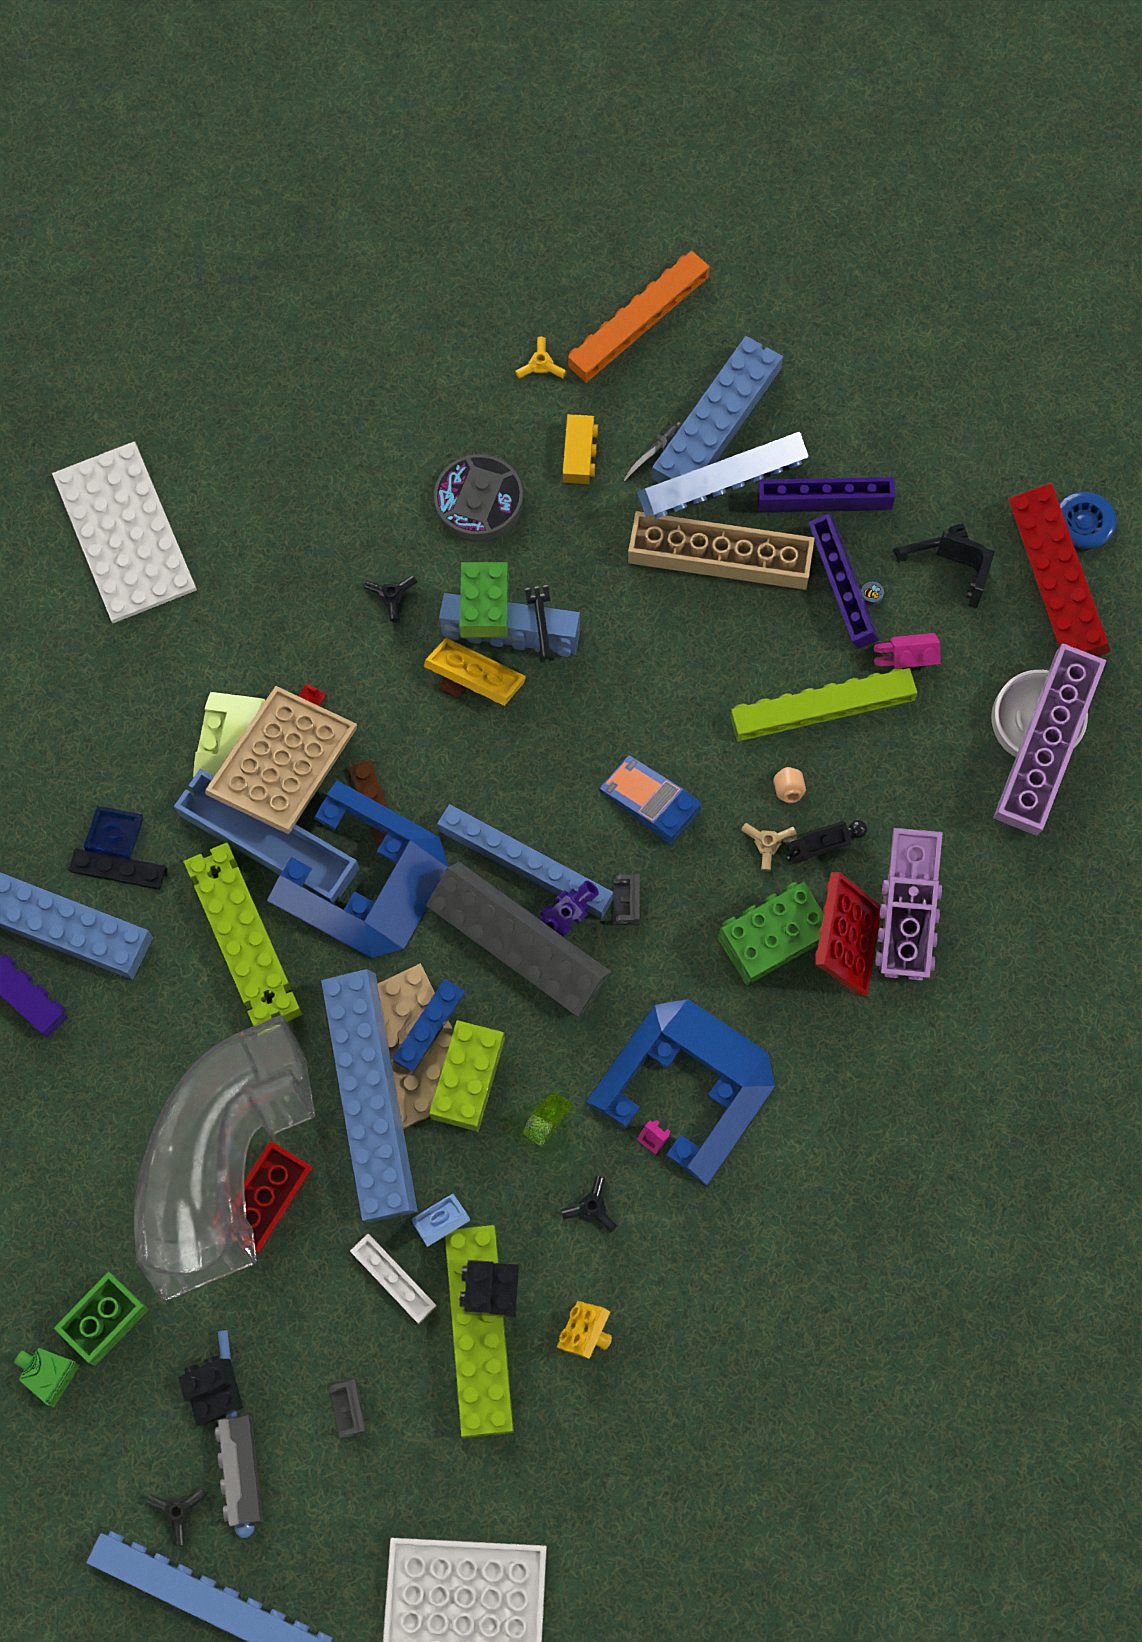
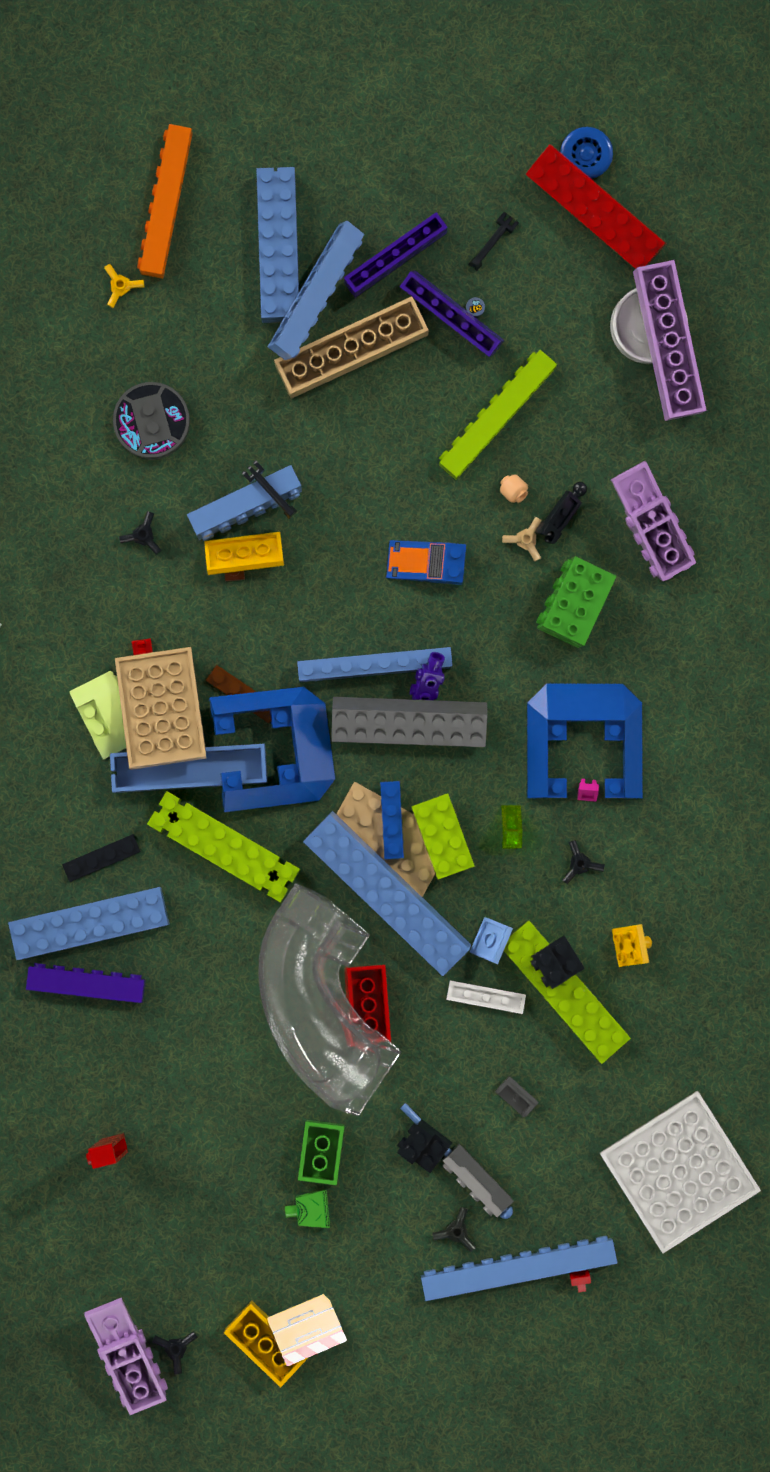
camera: 40 degrees left, 15 degrees up
(113, 832) = (80, 835): clear blue plate -> none
(484, 599) = (221, 502): bright green brick -> none
(579, 449) = (197, 335): yellow brick -> none
(626, 900) = (460, 644): dark grey hinge -> none
(663, 441) = (249, 296): piece -> none
(848, 934) = (626, 571): red plate -> none
(909, 651) = (531, 336): dark pink hinge -> none
(969, 554) = (534, 233): black piece -> none

